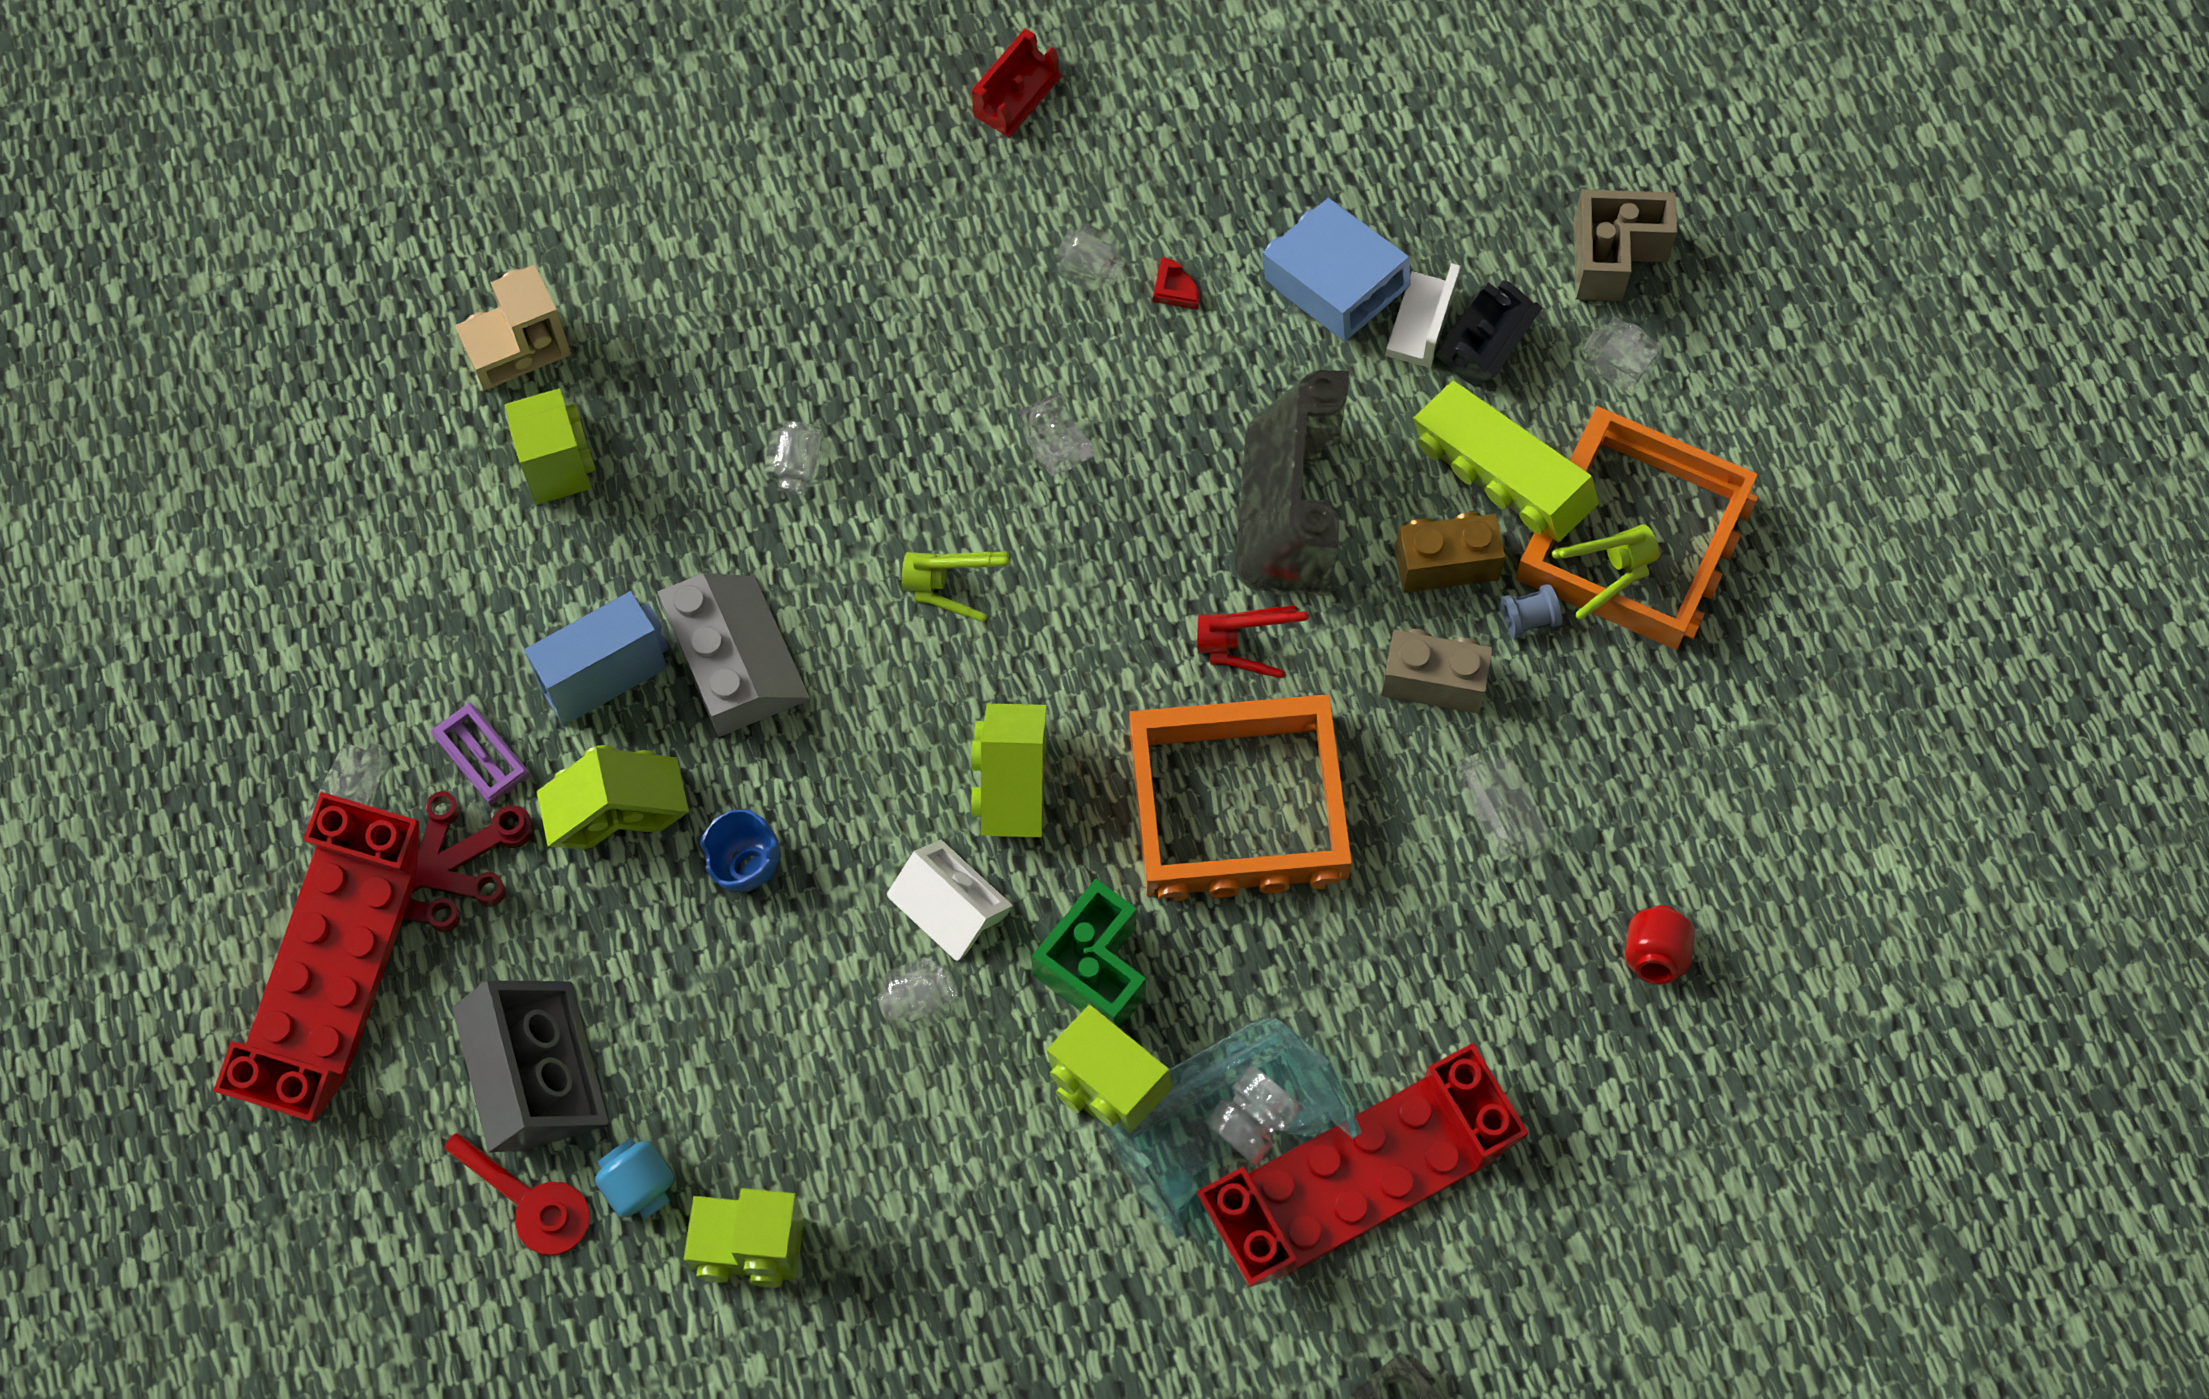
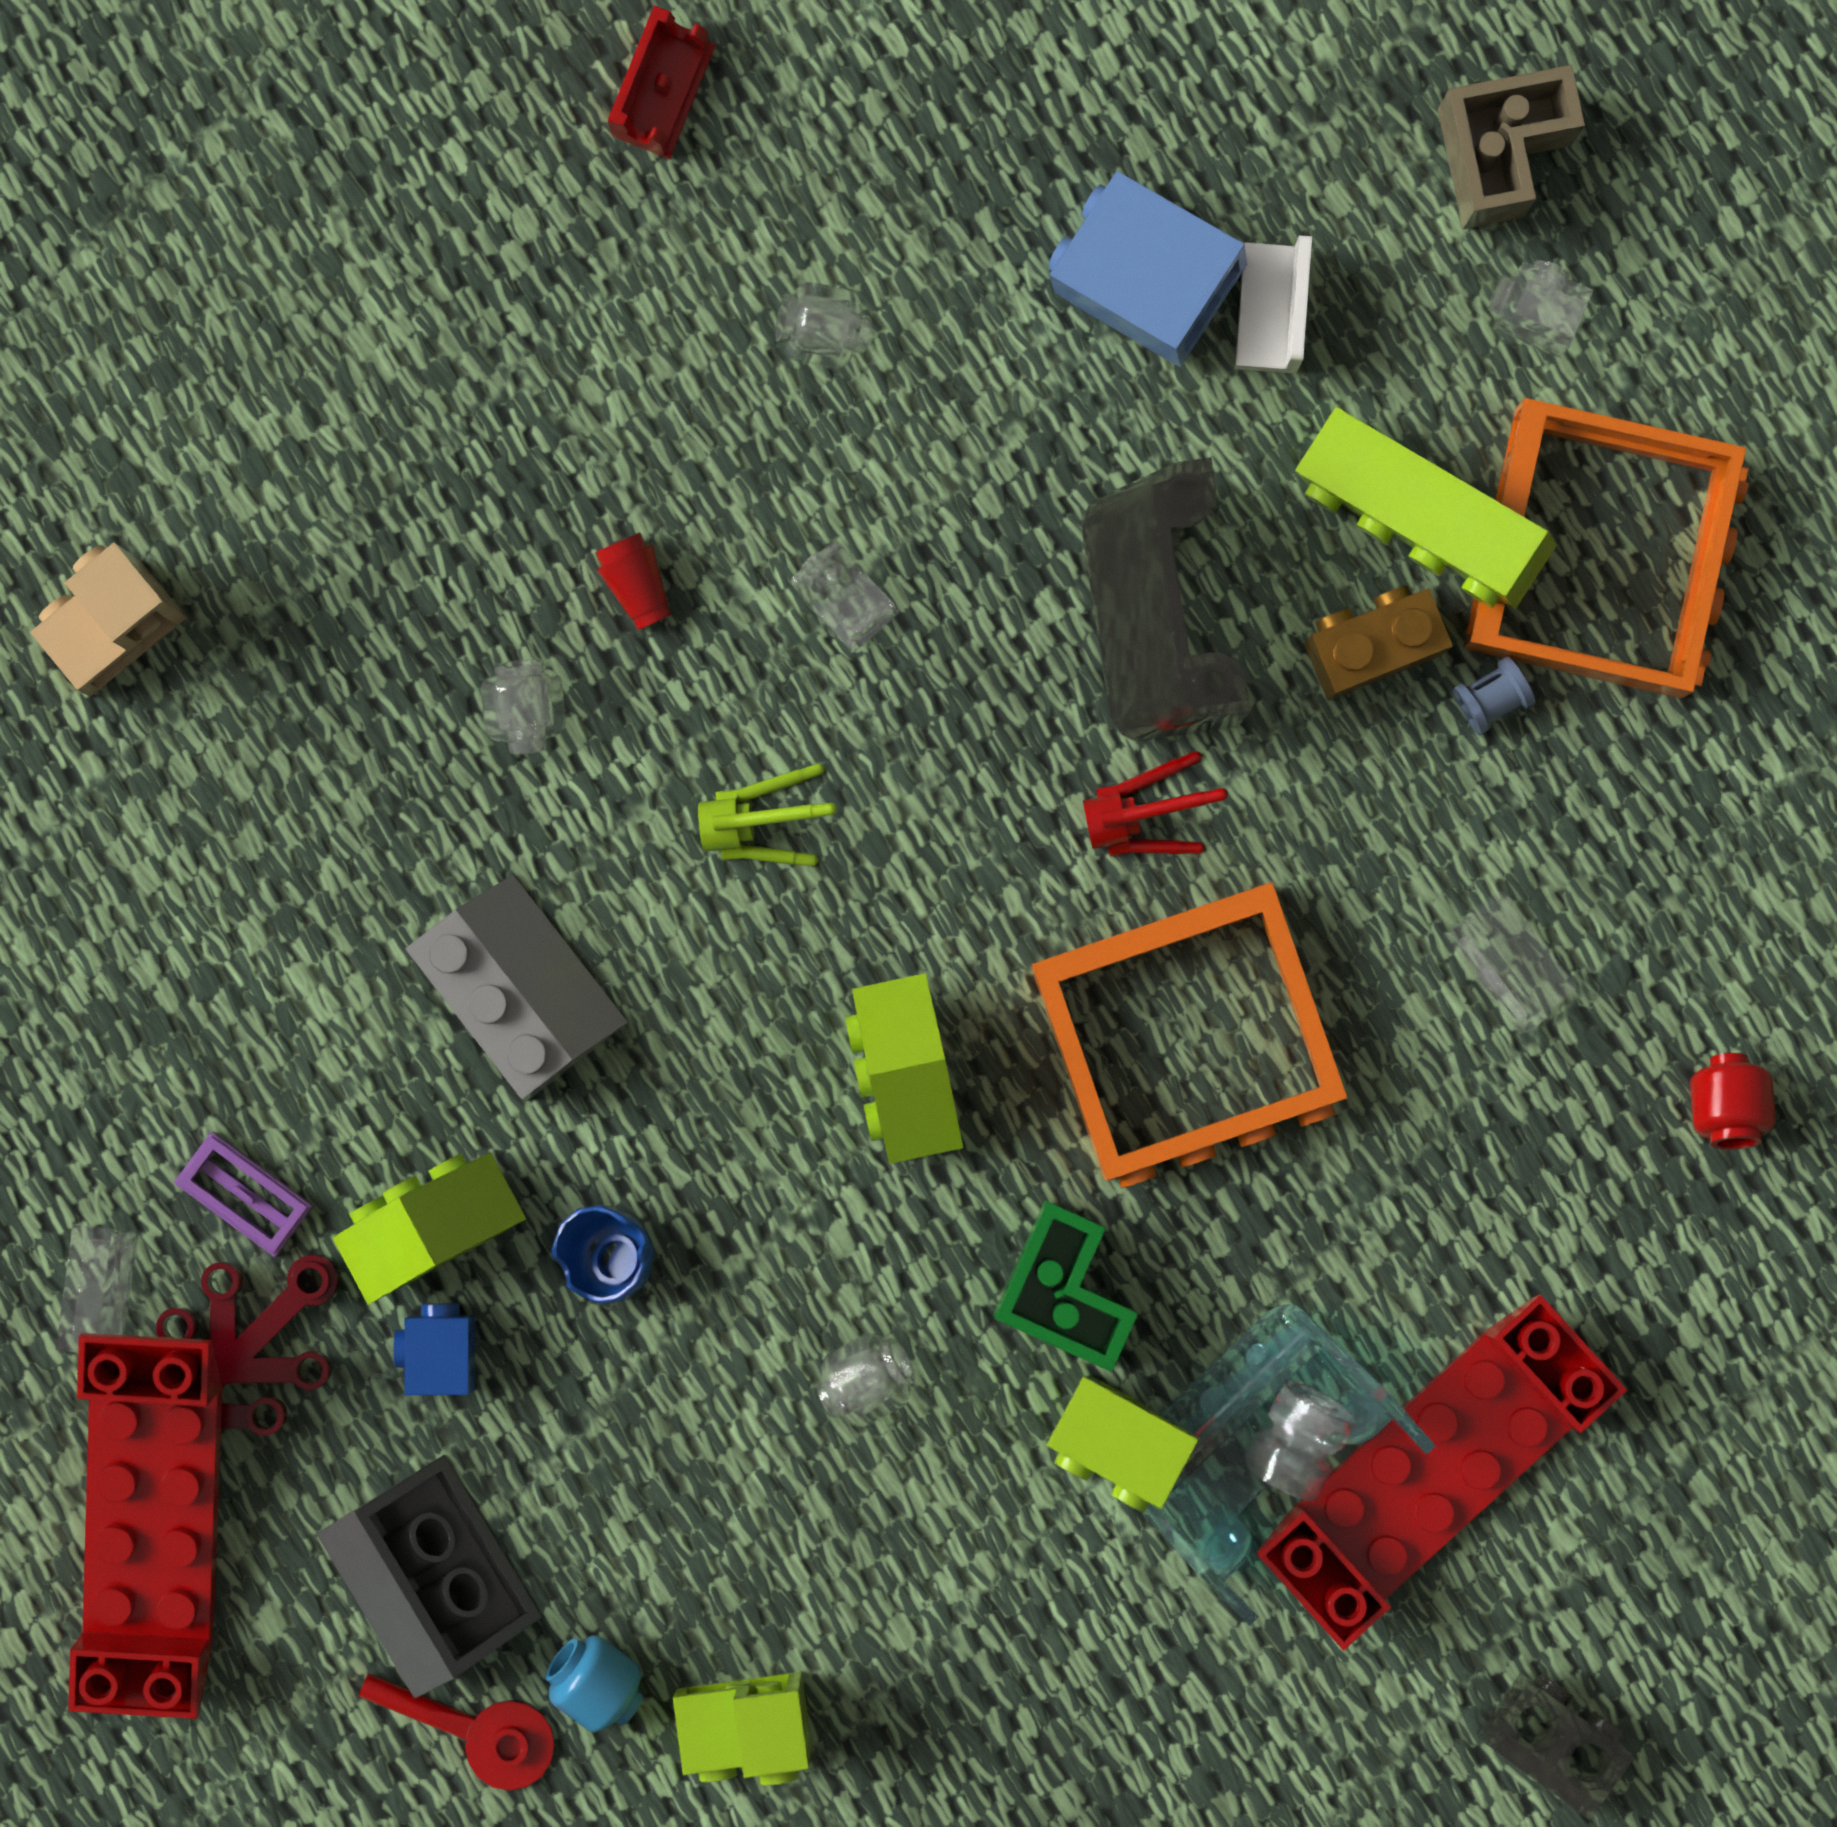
camera: 15 degrees left, 20 degrees up
(550, 445) = (200, 768): lime brick -> none
(590, 896) = (437, 1351): none -> blue brick
(598, 657) = (356, 1052): medium blue brick -> none
(904, 392) = (634, 579): none -> red cone
(947, 898) = (869, 1244): white panel -> none
(1175, 286) = (942, 333): red tile -> none
(1437, 670) = (1395, 810): dark tan brick -> none
(1487, 332) = (1363, 314): black hinge -> none
(1625, 550) = (1604, 603): lime plant -> none

